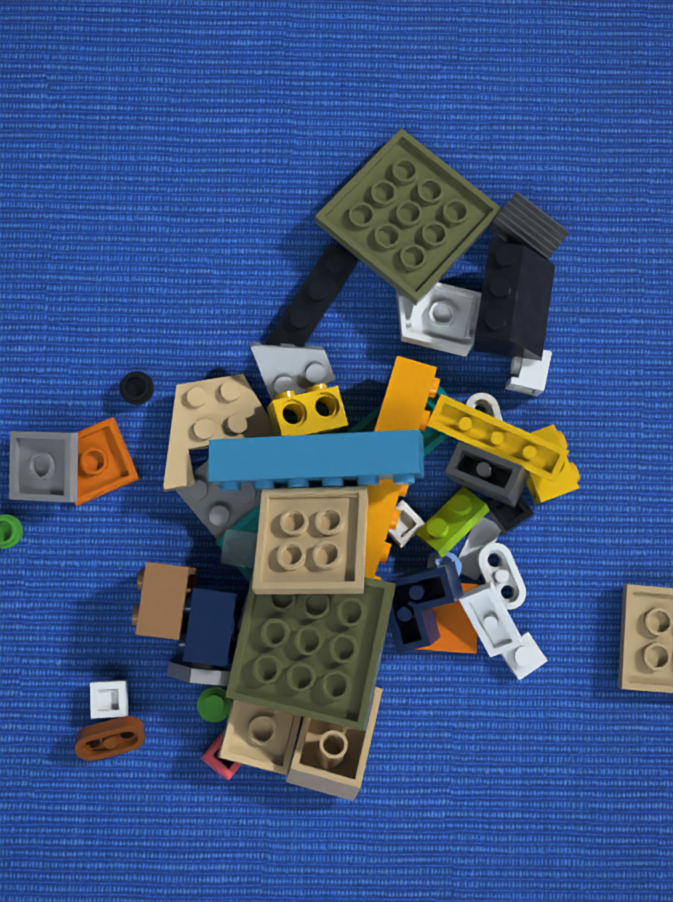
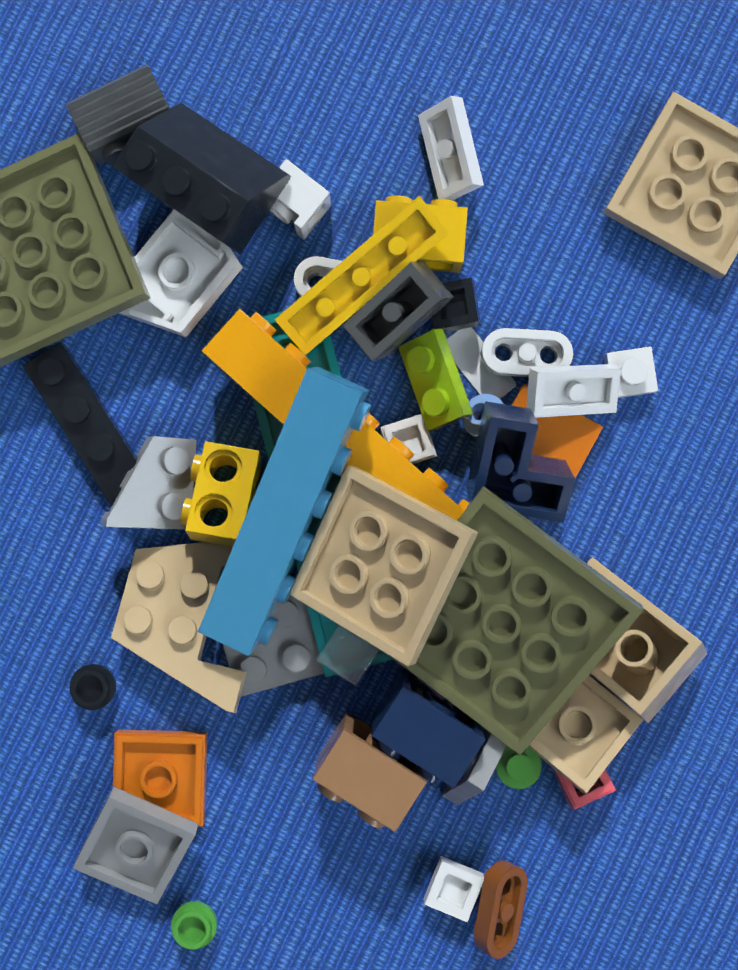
camera: 55 degrees left, 5 degrees up
(614, 458) = (450, 149): none -> white plate

